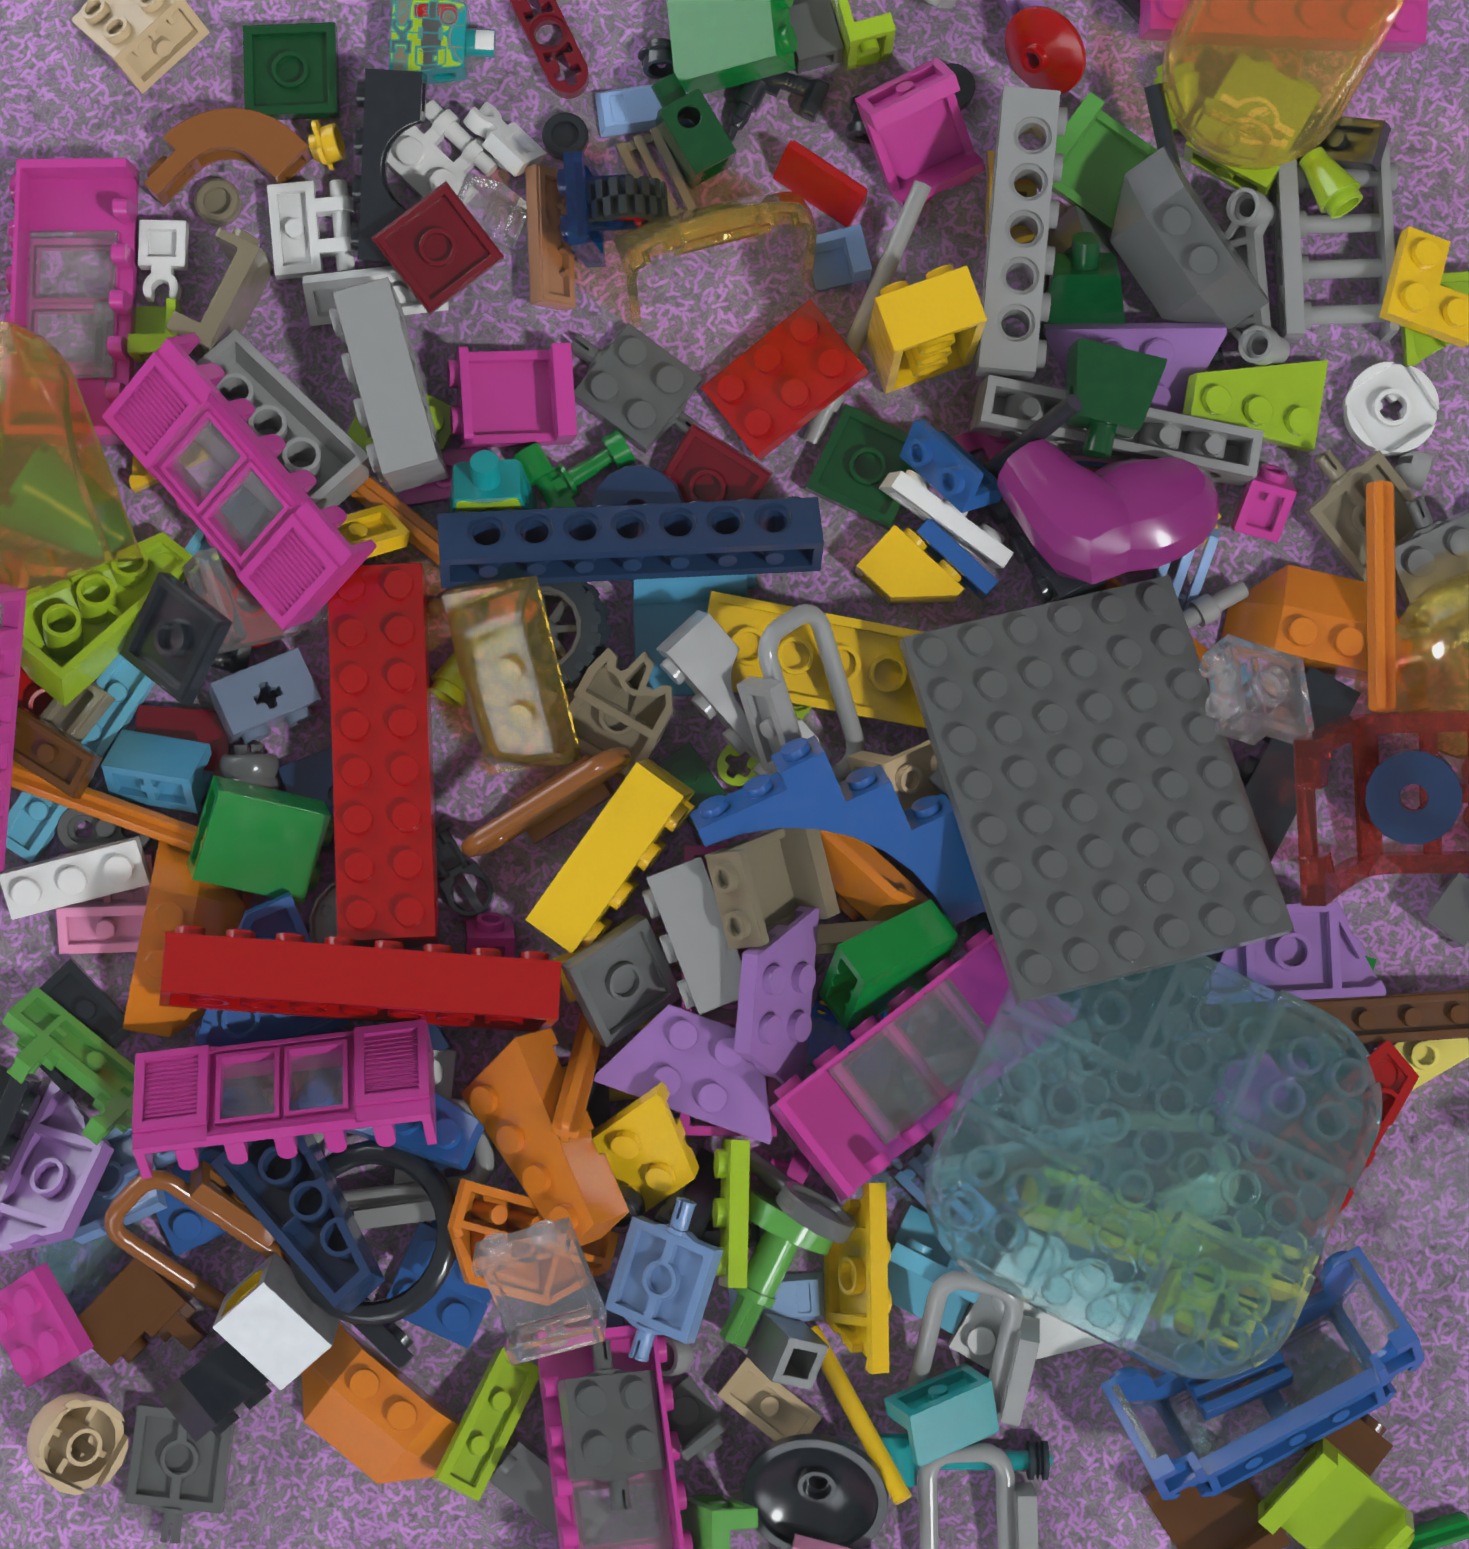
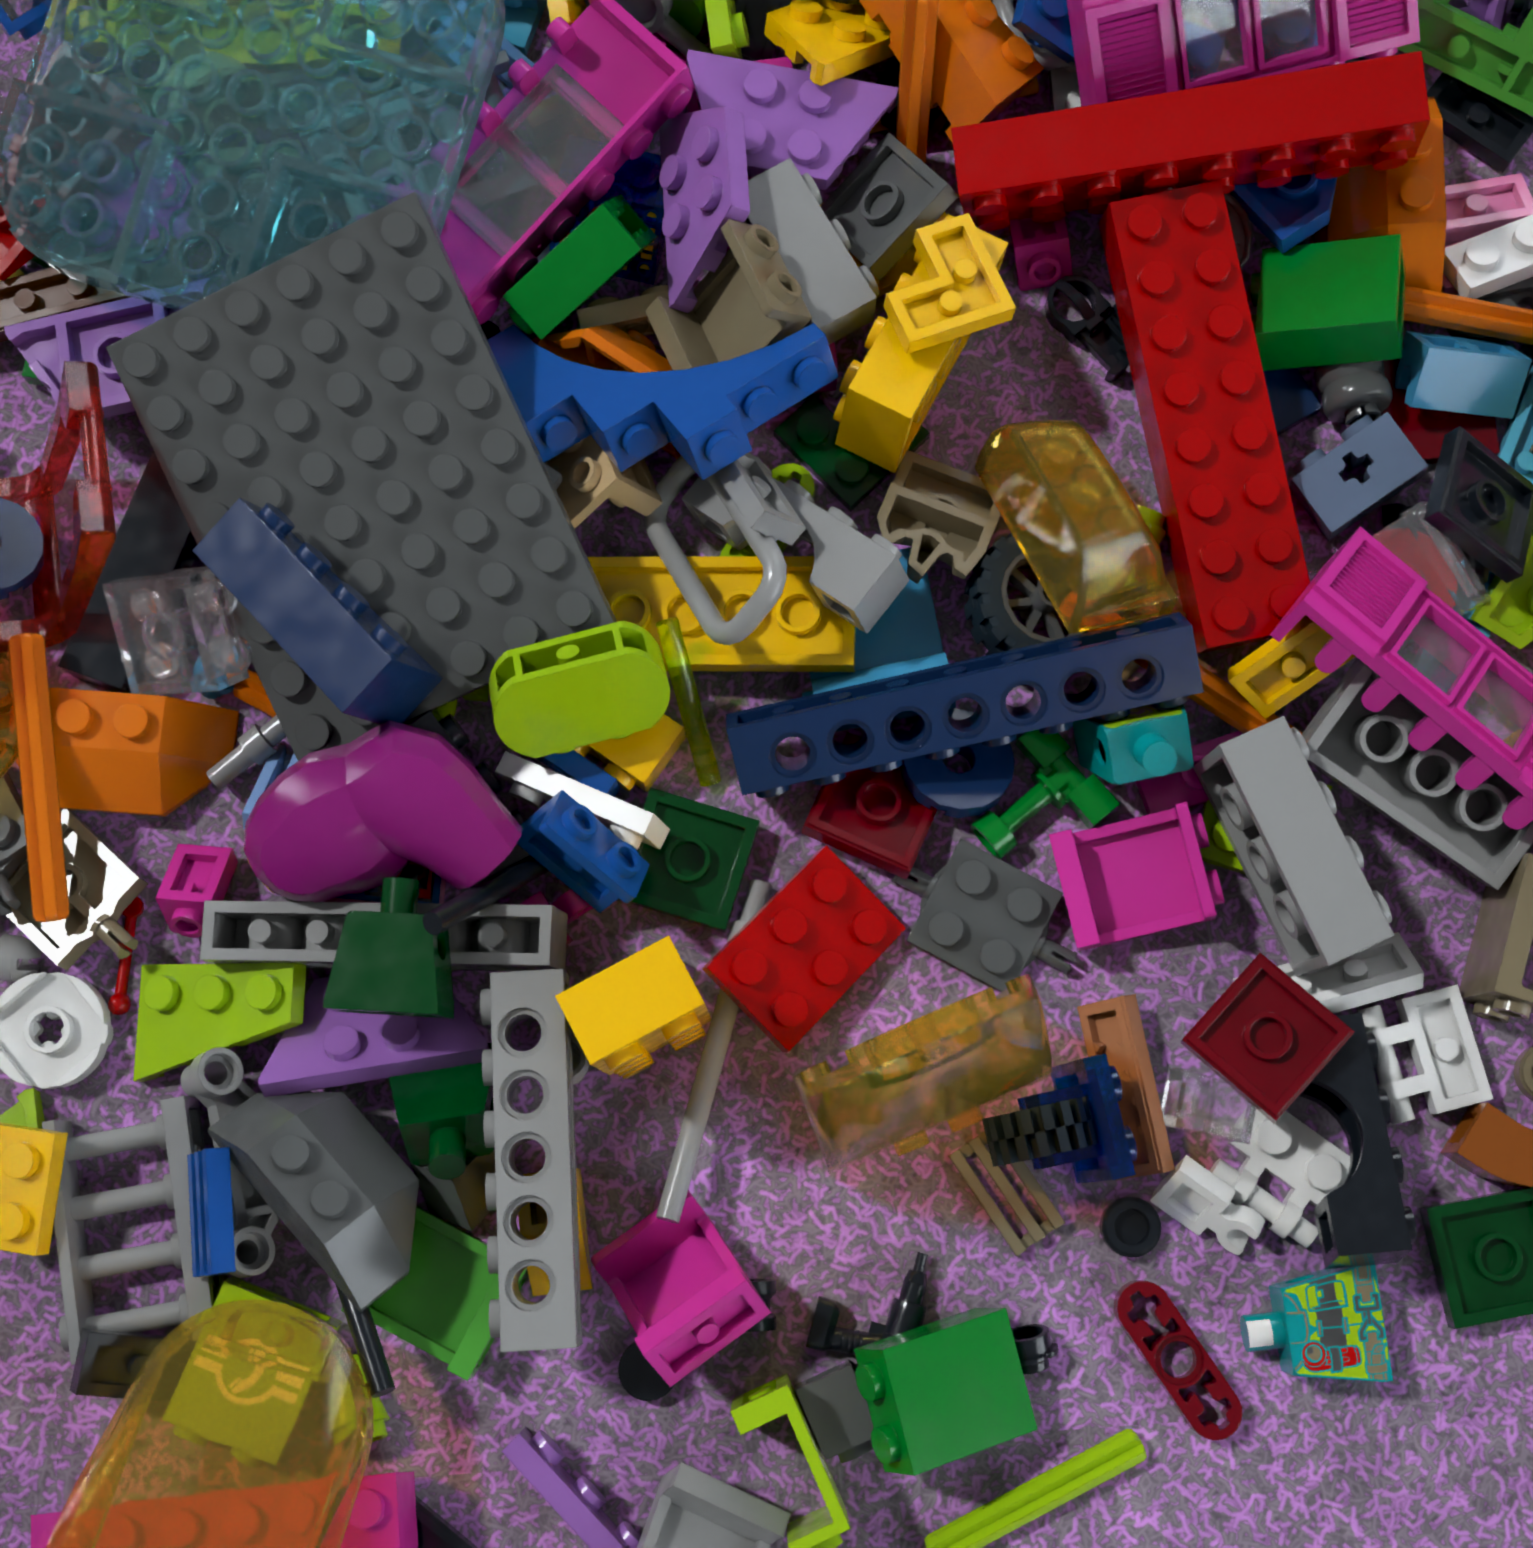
camera: 175 degrees right, 5 degrees down
(326, 144) = (1429, 1165): yellow plate -> none
(552, 803) = (1004, 392): dark orange bar -> none
(571, 867) = (962, 291): none -> yellow plate
(628, 110) = (1040, 1279): light blue tile -> none
(697, 150) = (956, 1221): dark green torso -> none
(820, 183) = (798, 1210): red slope -> none
(841, 258) = (761, 1115): medium blue panel -> none
(849, 587) = (688, 701): none -> clear neon green bar
(937, 591) = (578, 689): none -> lime brick
(1045, 49) = (532, 1431): red dish -> none
(1142, 670) = (316, 615): none -> dark blue wedge
(1271, 237) = (211, 1212): none -> blue tile
(1331, 185) = (142, 1300): lime cone -> none
(1335, 426) = (120, 1002): none -> red hinge

